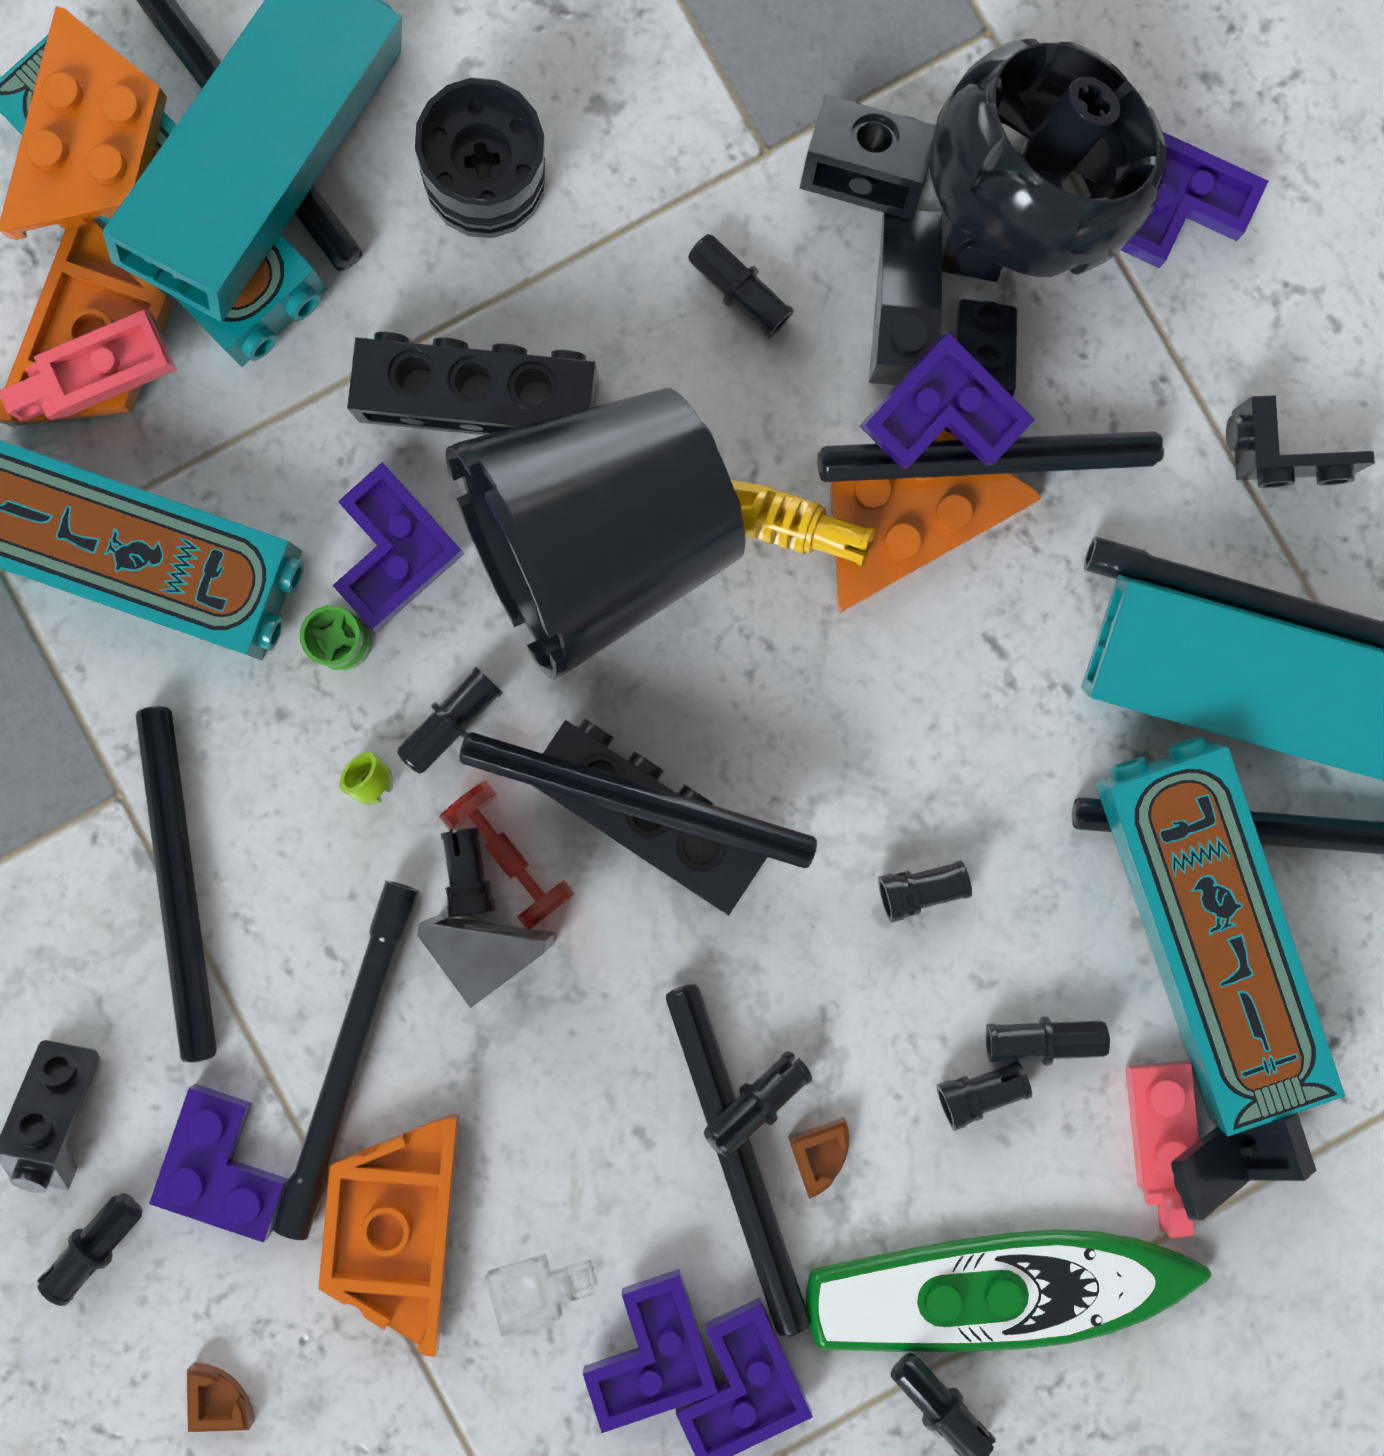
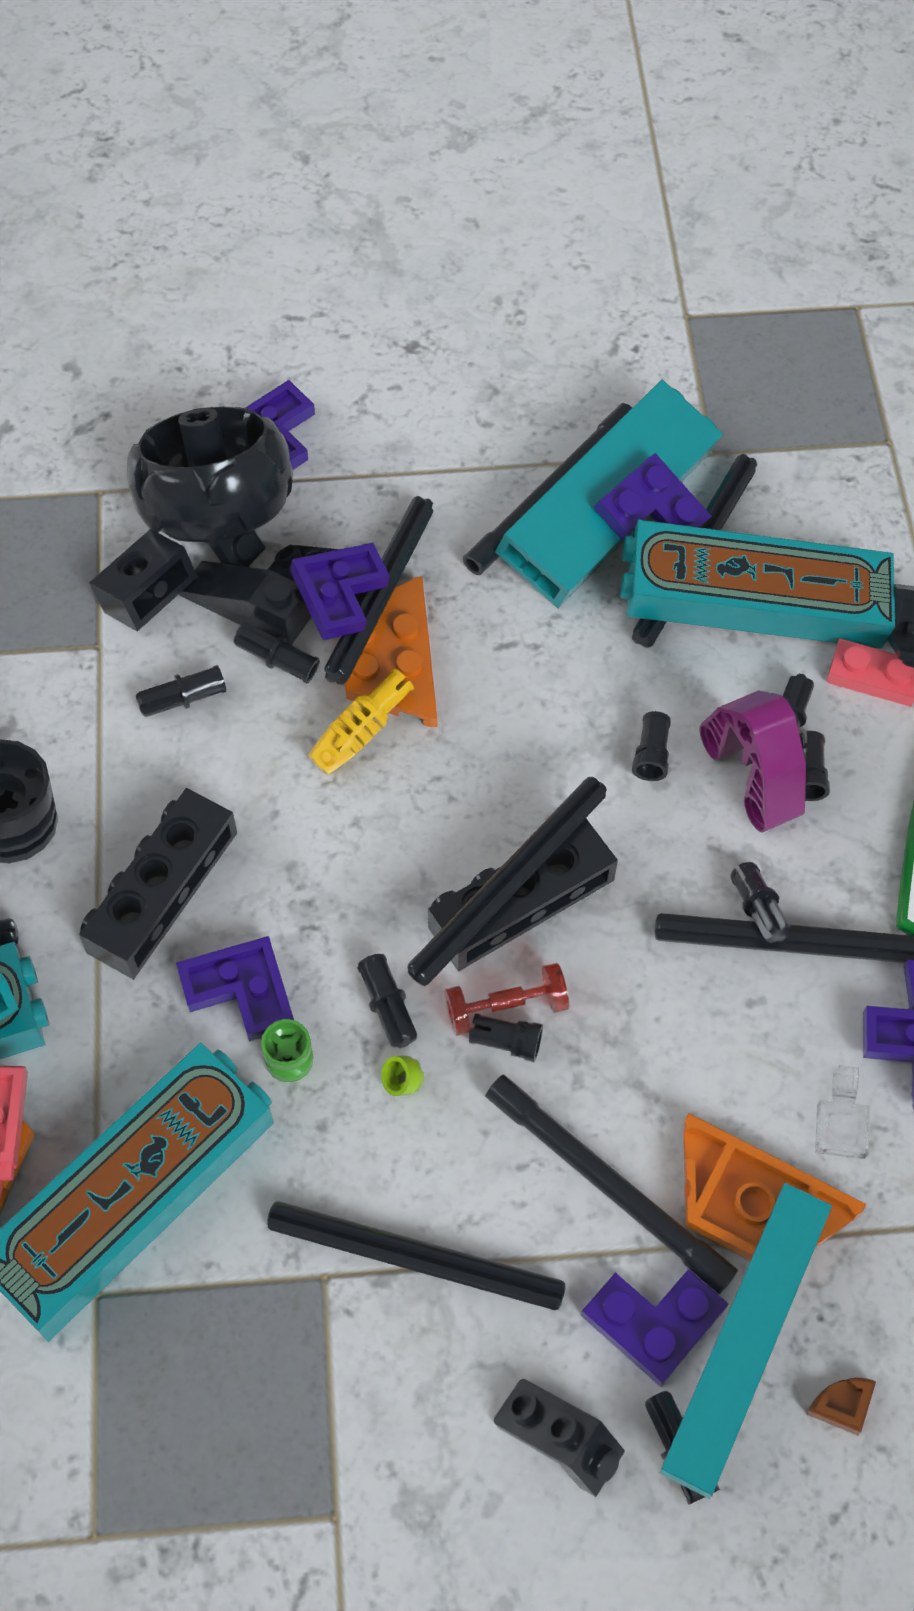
camera: 65 degrees left, 25 degrees down
(218, 1283) = (745, 1342): none -> teal tile
(480, 953) = (573, 1034): flat silver slope -> none
(597, 519) = (301, 824): black cone -> none
(820, 1154) = (814, 888): dark orange tile -> none
(846, 371) = (276, 652): none -> black axle
(961, 1036) = (771, 741): none -> magenta connector
(1255, 441) = (455, 449): black bracket -> none
(1292, 748) = (652, 492): none -> dark purple plate

